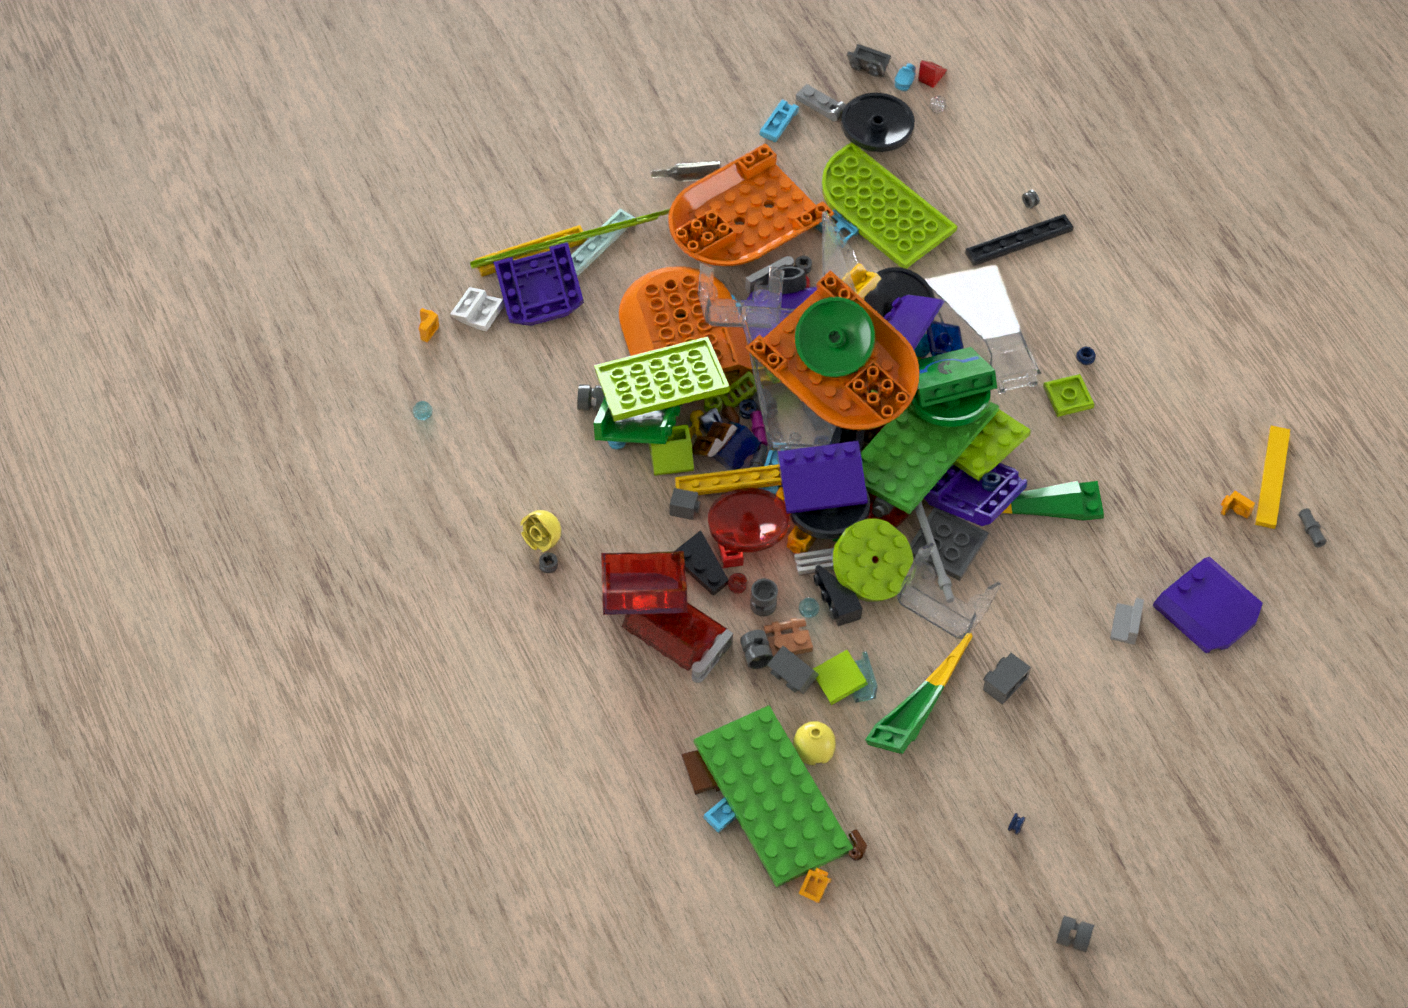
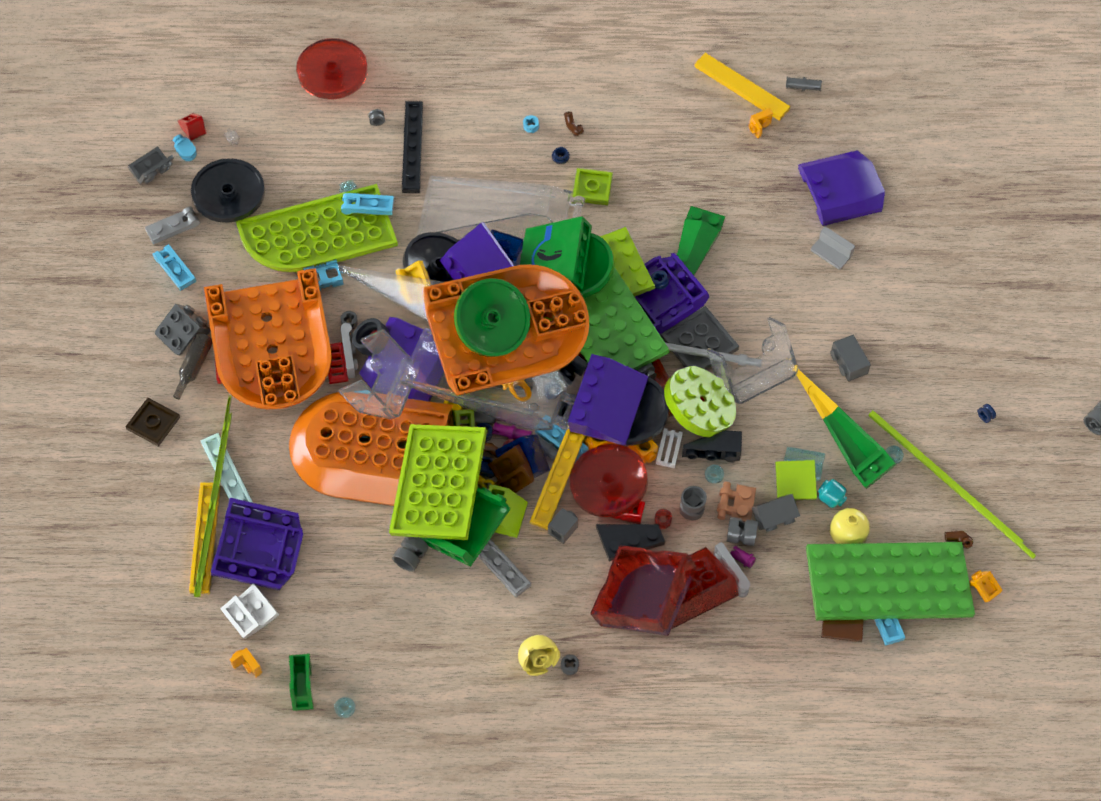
camera: 65 degrees left, 5 degrees up
(428, 363) = (300, 683): none -> green piece
(620, 170) = (152, 421): none -> dark brown tile
(620, 472) = (504, 569): none -> light grey tile
(722, 147) = (180, 328): none -> dark grey bracket
(731, 666) = (743, 557): none -> magenta pin
(758, 264) = (337, 352): none -> red slope
(796, 401) = (523, 384): none -> light orange piece
(842, 713) = (832, 493): none -> teal head
(918, 817) = (950, 482): none -> lime piece
(919, 750) = (896, 451): none -> clear light blue plate
(928, 226) = (367, 204): none -> medium azure plate
(941, 206) = (347, 186): none -> clear light blue plate
(1058, 143) = (332, 68): none -> clear red dish
(1106, 325) = (532, 128): none -> medium azure bush
(1124, 356) = (570, 124): none -> reddish brown arm

